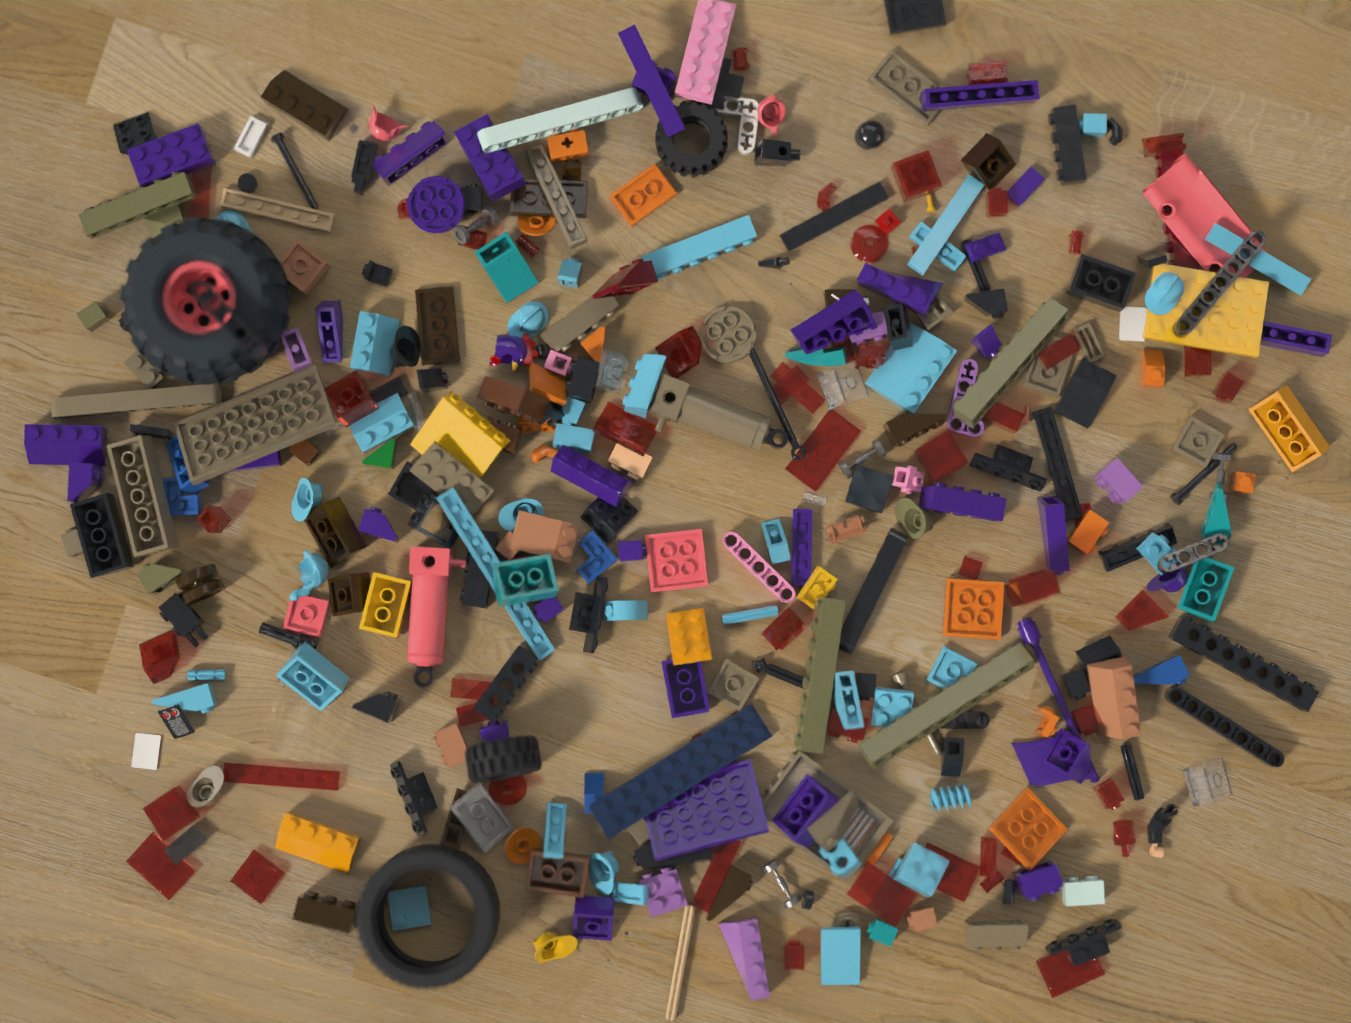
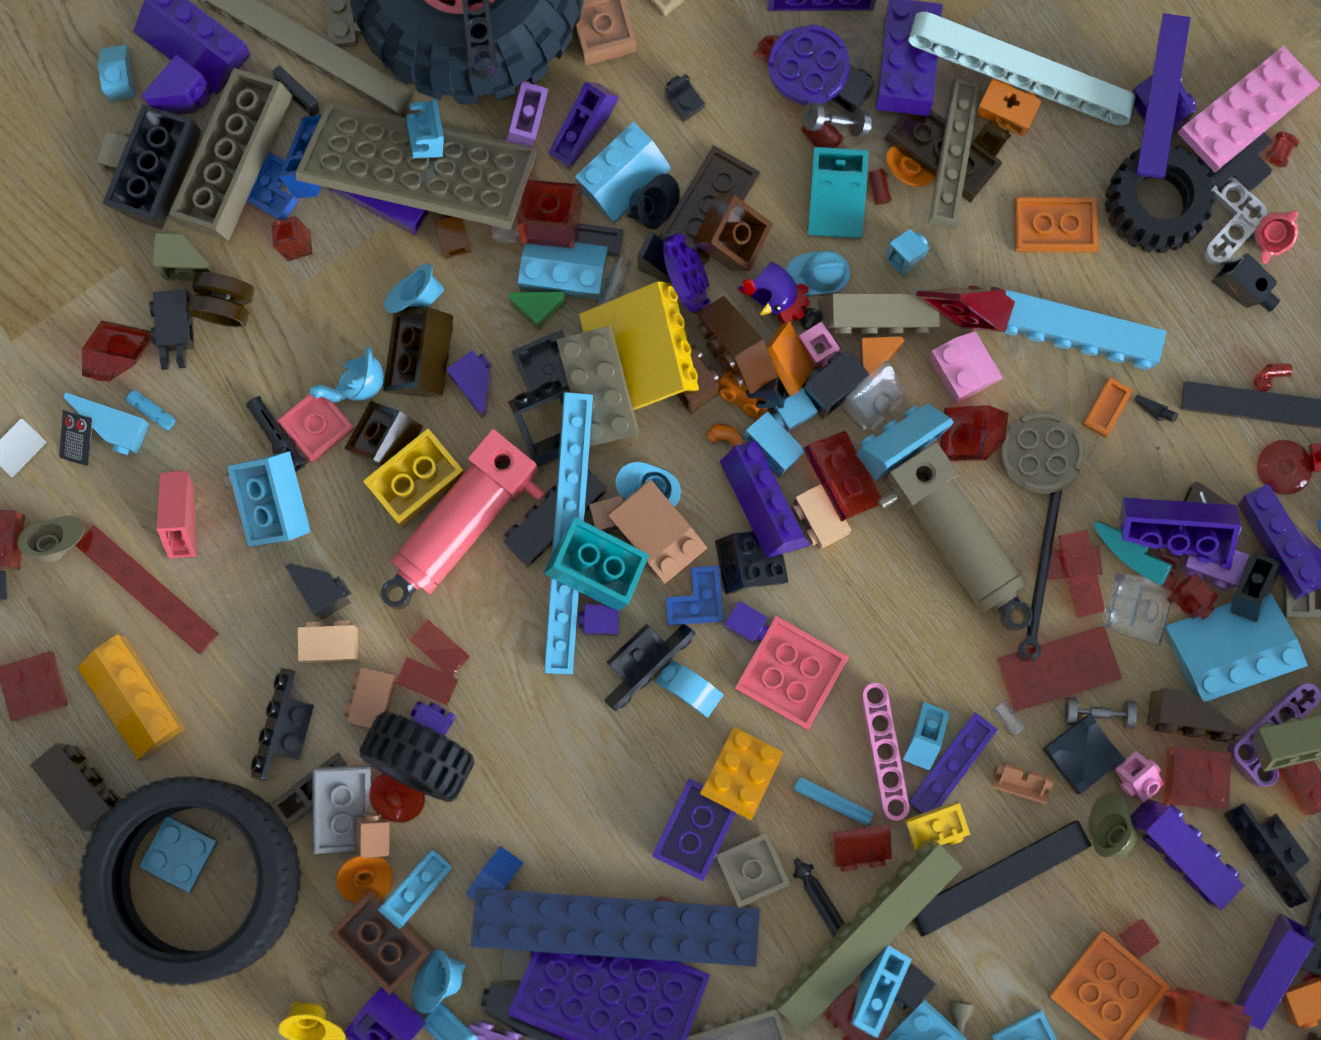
camera: 35 degrees right, 5 degrees down
(37, 495) = (116, 73): none -> medium azure slope
(244, 401) = (425, 130): none -> medium azure hinge
(267, 722) = (177, 514): none -> coral slope
(406, 732) = (327, 643): none -> light nougat brick
(454, 378) = (686, 273): none -> dark purple tile
(463, 334) = (732, 233): none -> reddish brown brick
(510, 819) = (372, 835): none -> nougat brick
(519, 656) = (526, 651): black brick -> none
(649, 315) = (964, 366): none -> bright pink slope
(746, 281) = (1107, 407): none -> orange tile

